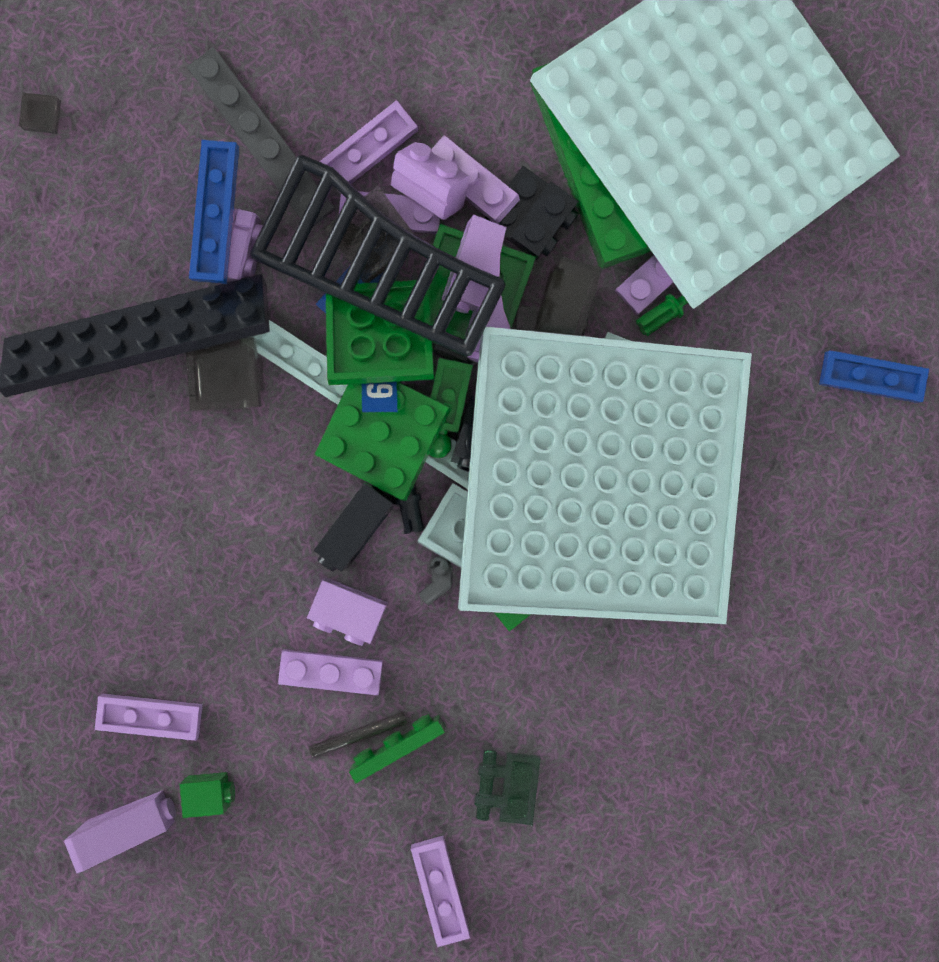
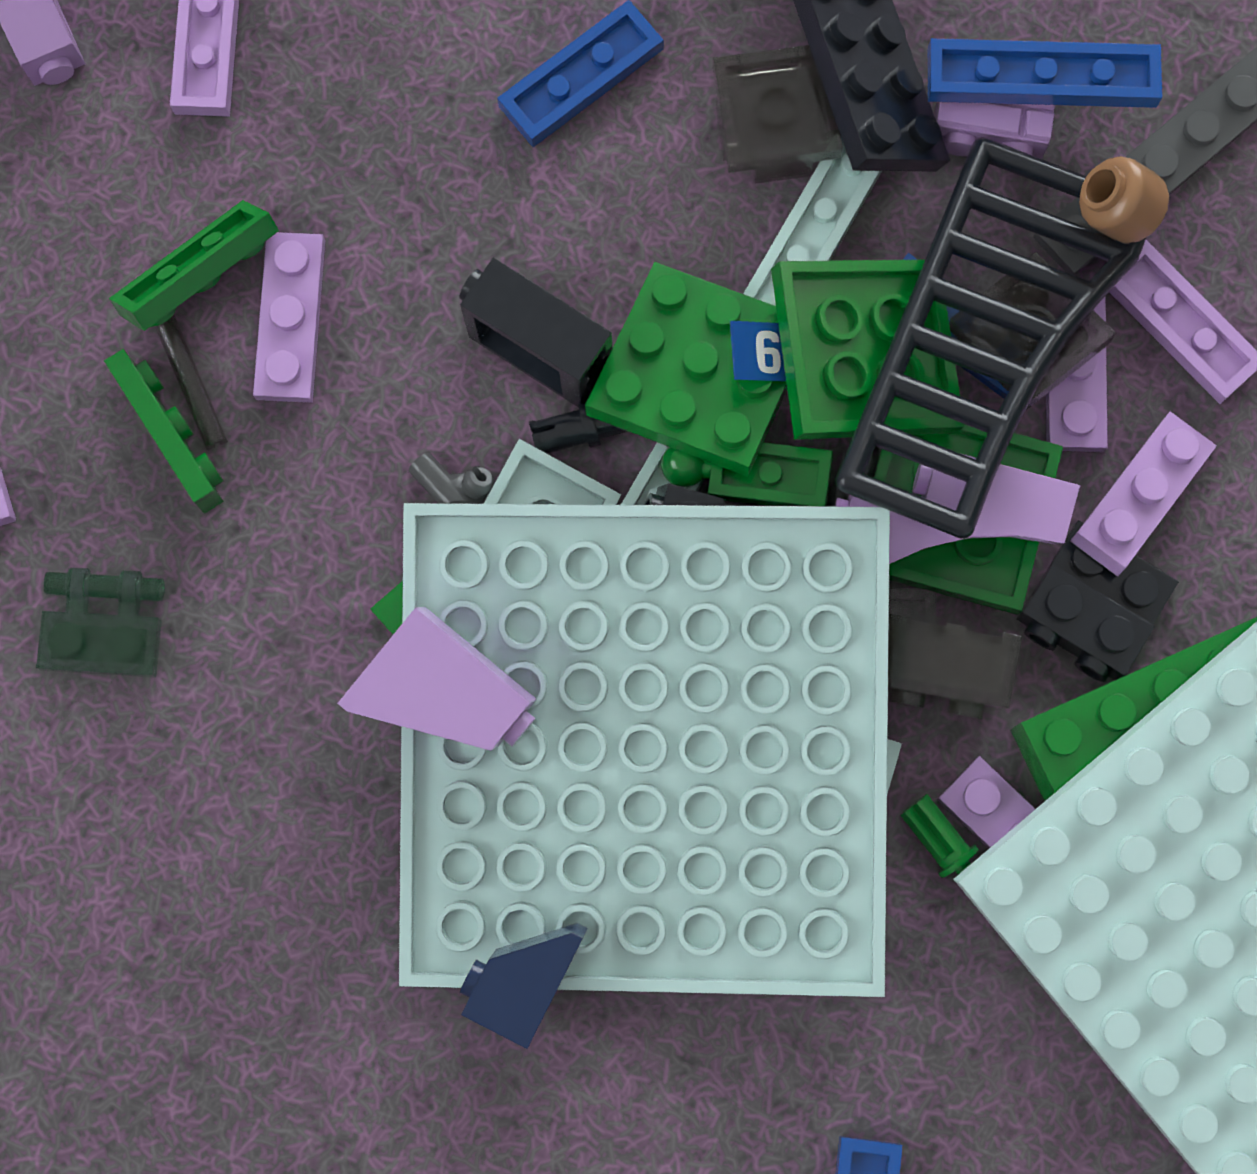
camera: 85 degrees right, 10 degrees down
(189, 491) = (580, 73): none -> blue plate
(206, 794) = (80, 128): green brick -> none
(298, 728) = (194, 265): none -> green plate
(301, 171) = (1124, 199): none -> medium nougat head
(346, 611) = (393, 334): lavender brick -> none
(430, 180) = (1134, 420): lavender brick -> none
(571, 592) = (441, 687): none -> lavender slope
(733, 555) = (520, 982): none -> dark blue slope

